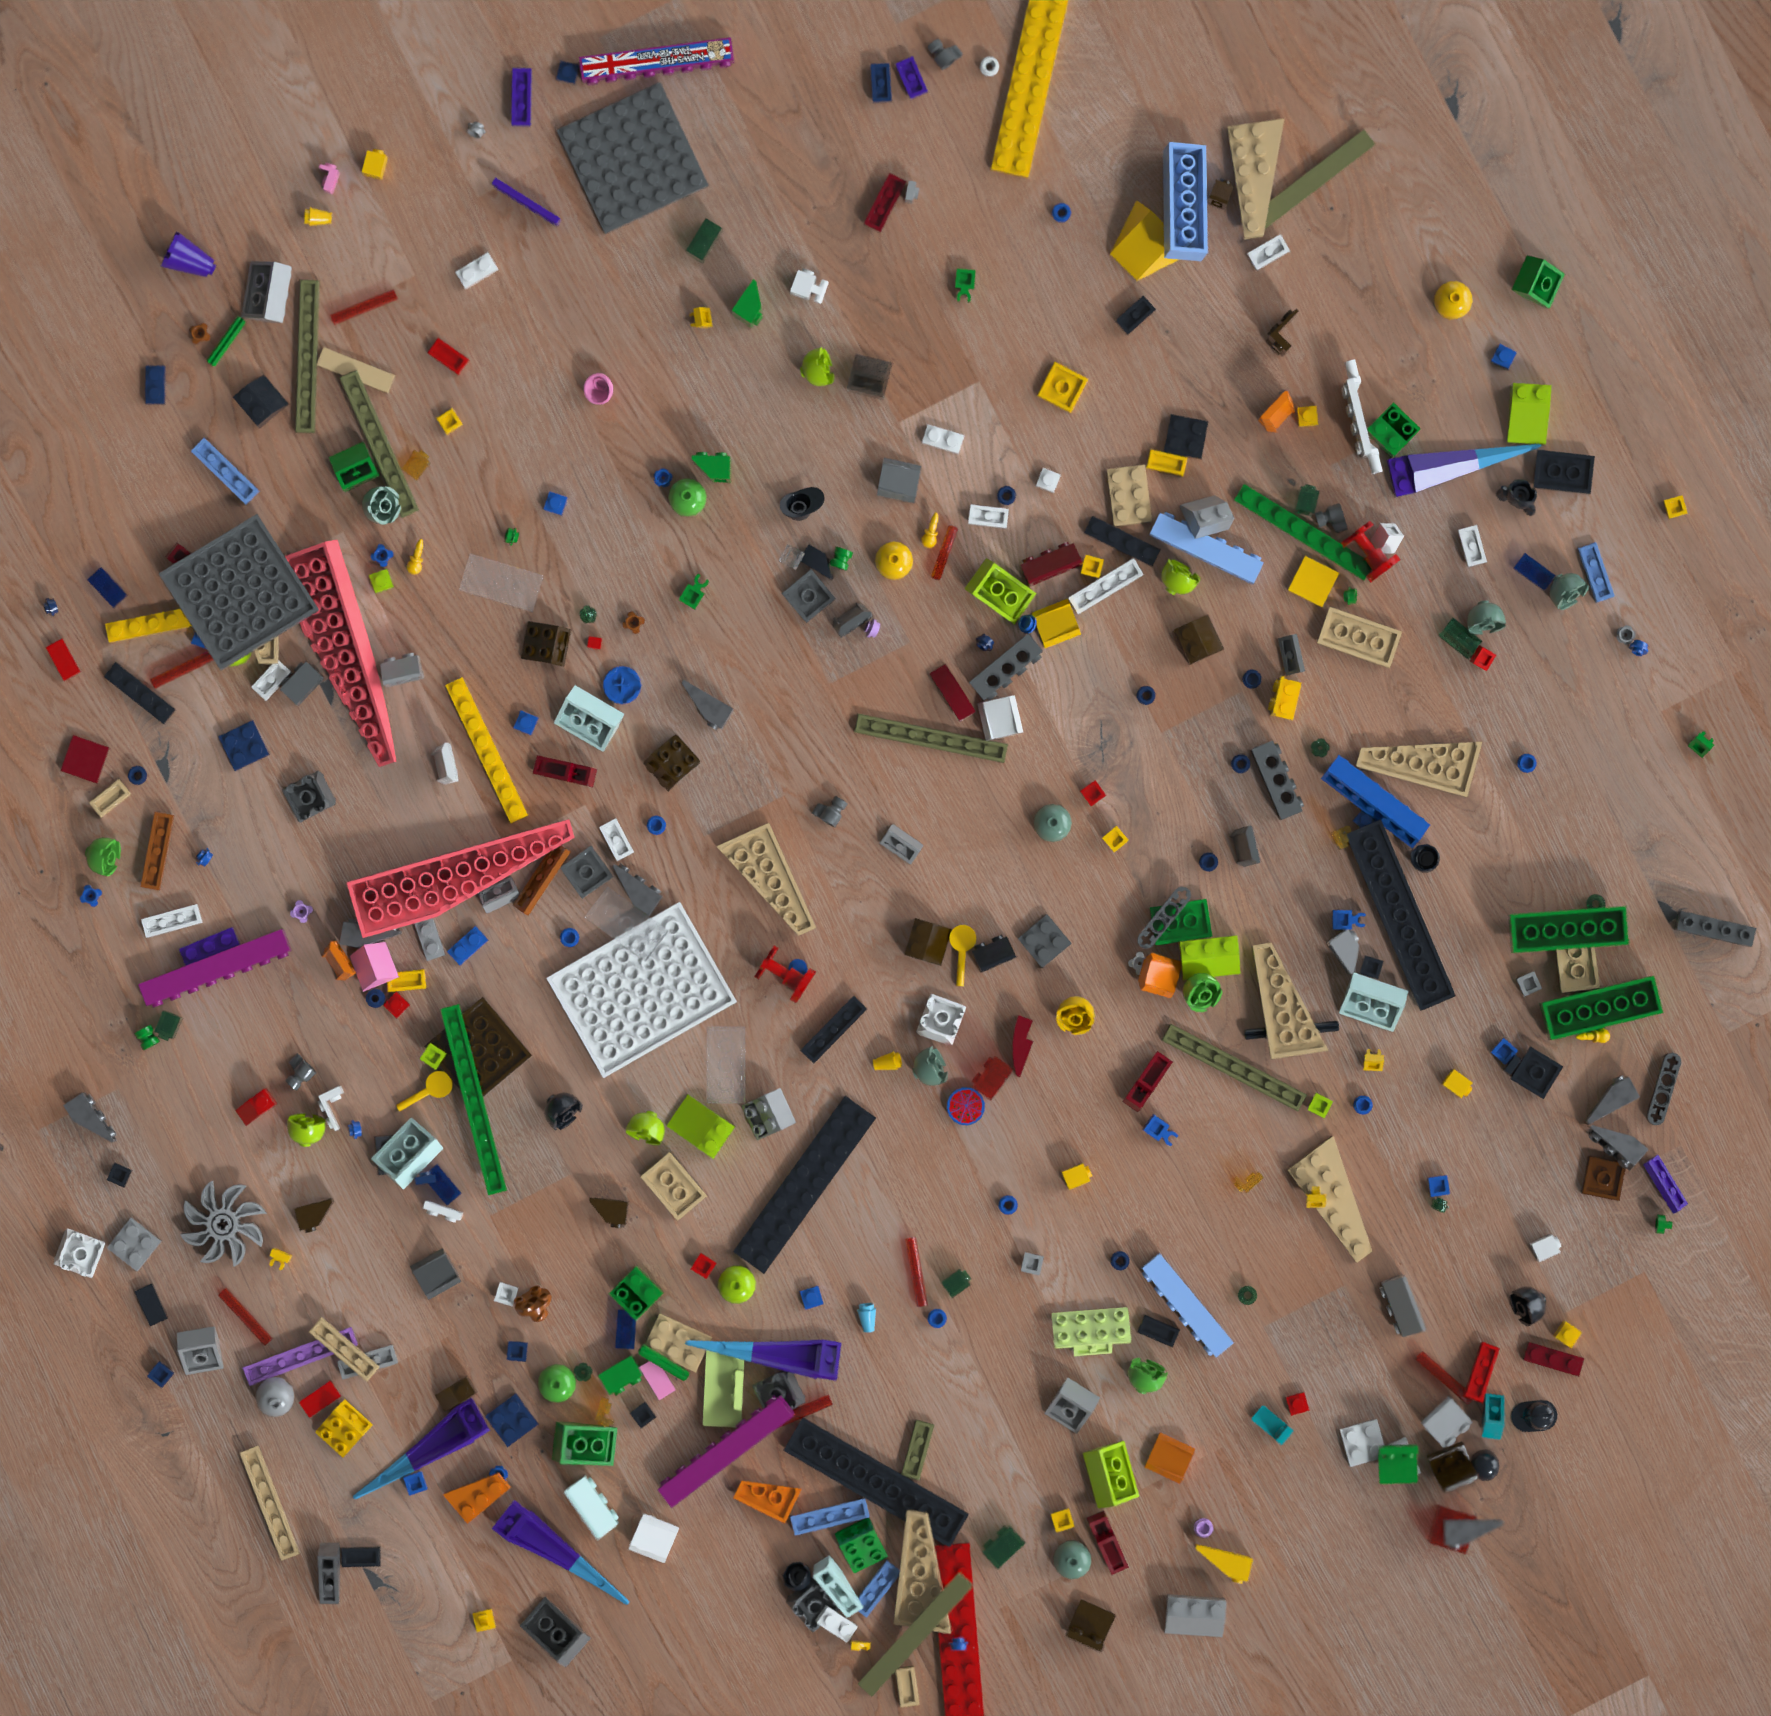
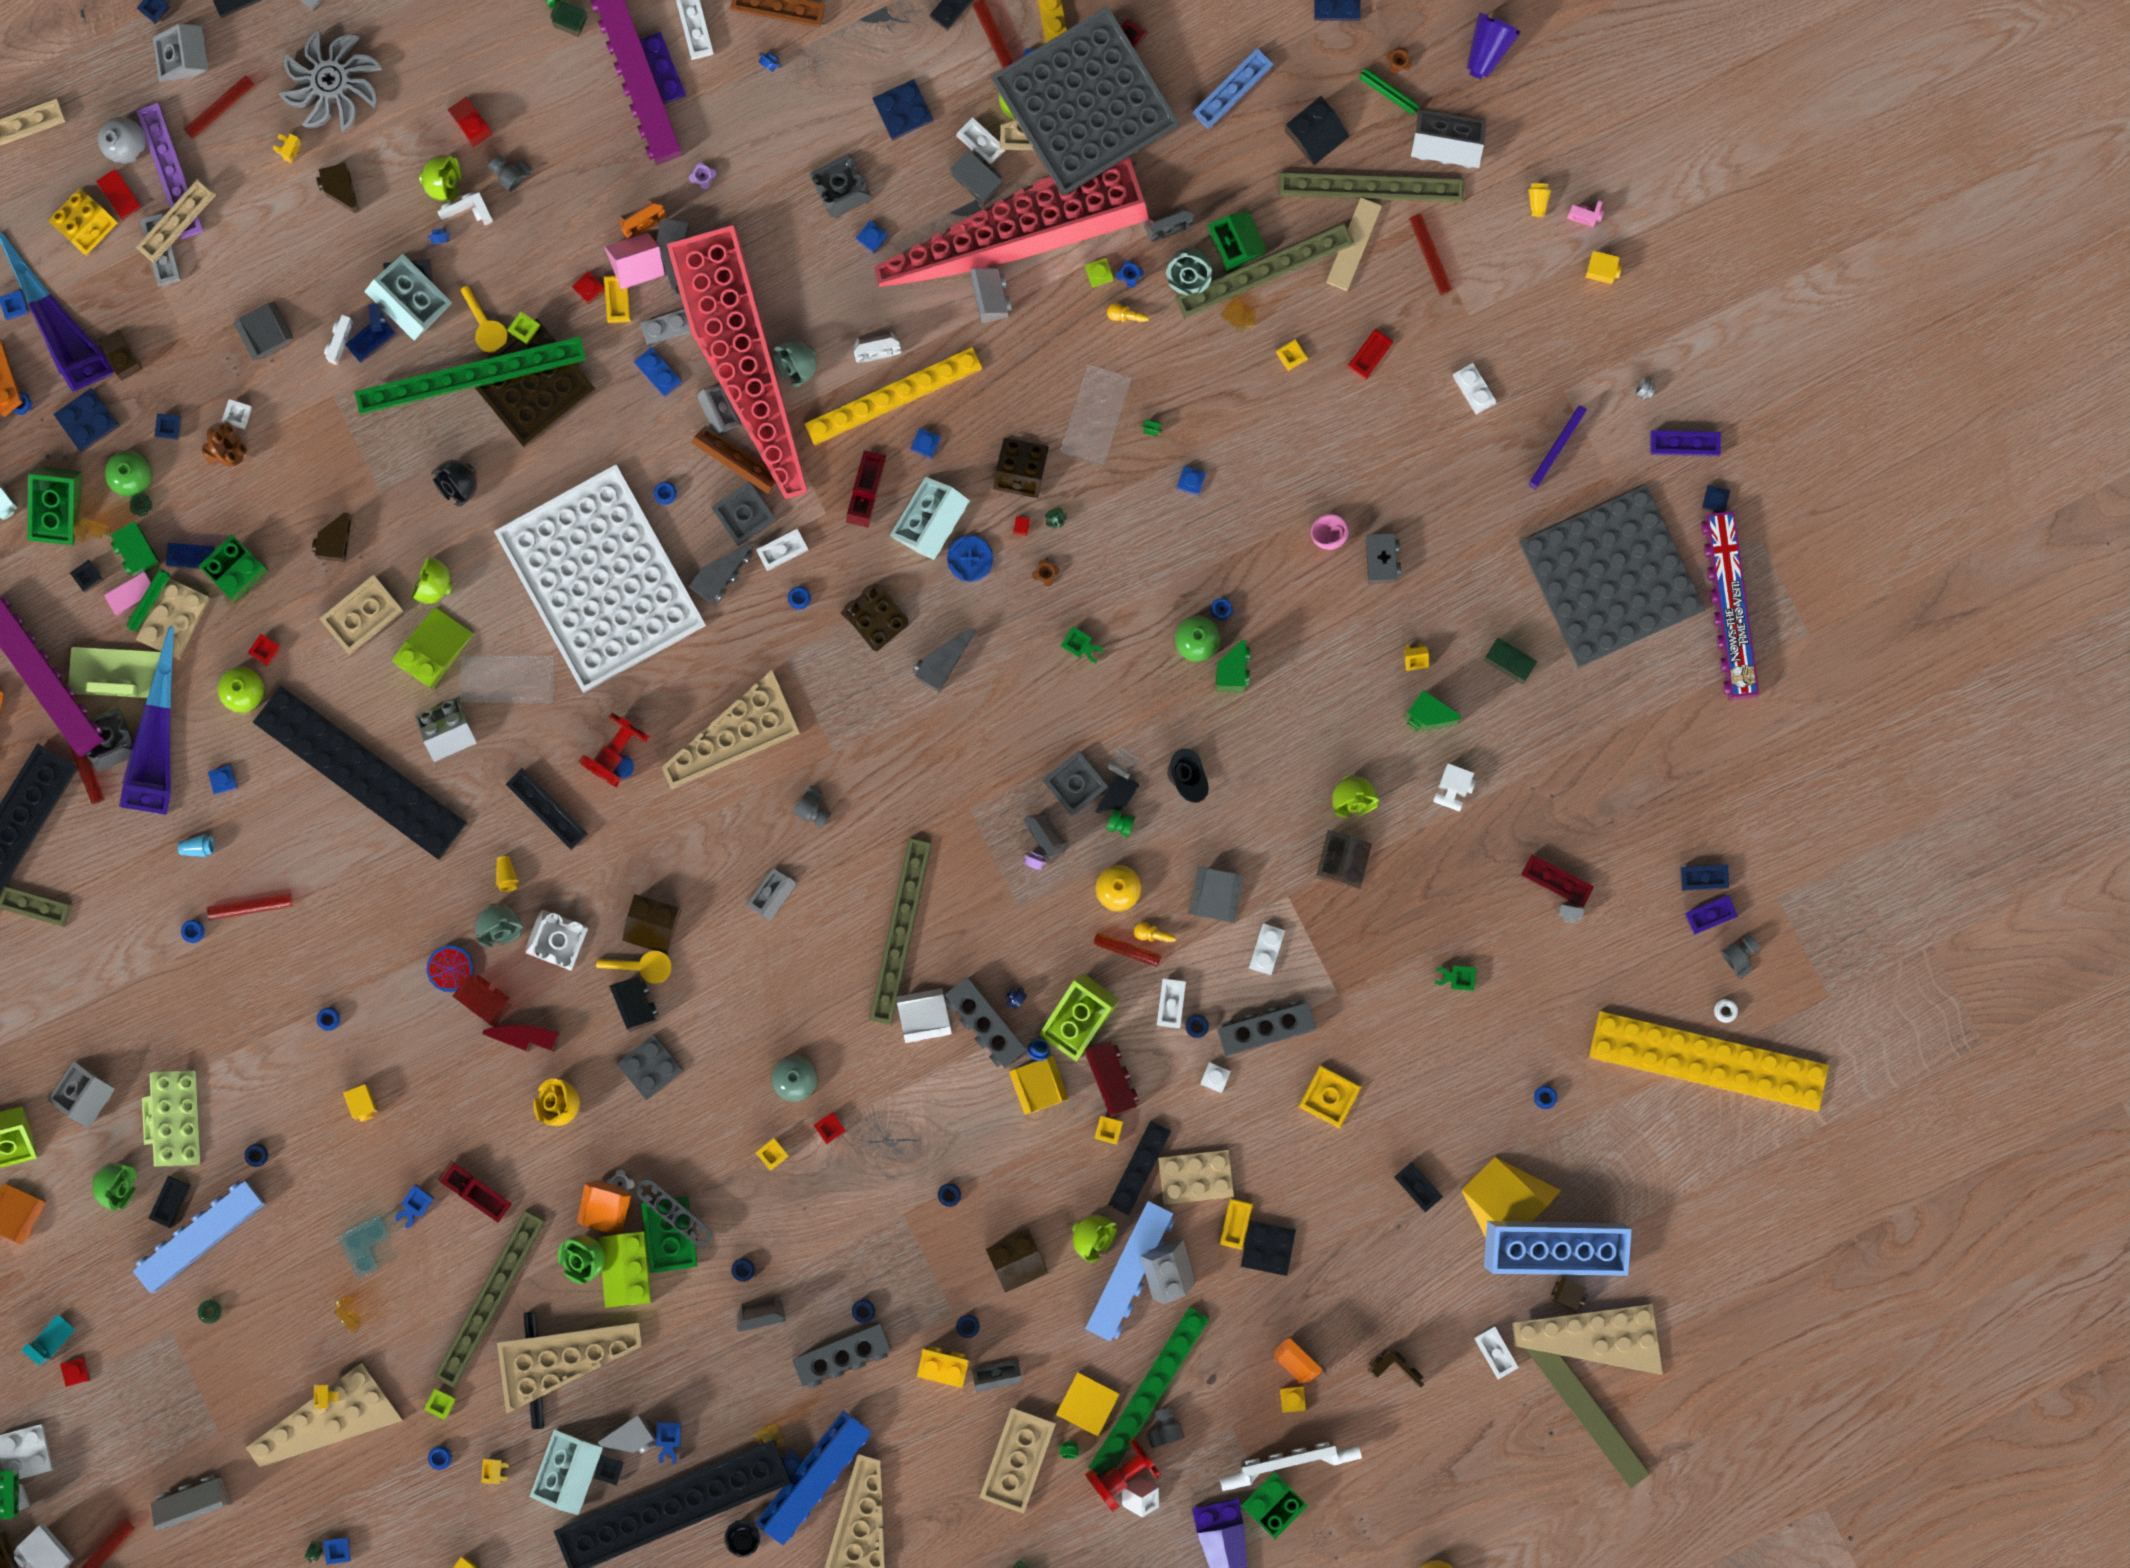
camera: 85 degrees right, 5 degrees down
(339, 523) = (1169, 224): none -> dark grey slope
(352, 770) = (871, 237): none -> blue plate
(380, 994) = (596, 269): dark blue plate -> none
(458, 830) = (795, 361): none -> sand green cylinder
(611, 352) = (1375, 546): none -> dark grey brick
(626, 924) = (679, 560): clear tile -> none
(952, 692) = (955, 957): dark red slope -> none
(956, 1282) = (234, 955): clear green brick -> none
(1005, 409) = (1232, 1044): none -> dark grey brick
(1032, 1263) = (255, 1047): light grey plate -> none
(1105, 586) = (1083, 1146): white plate -> none
(1190, 1175) = (357, 1245): none -> clear light blue plate
(1306, 500) = (1187, 1395): clear green brick -> none
(1325, 748) = (881, 1416): clear green plate -> none

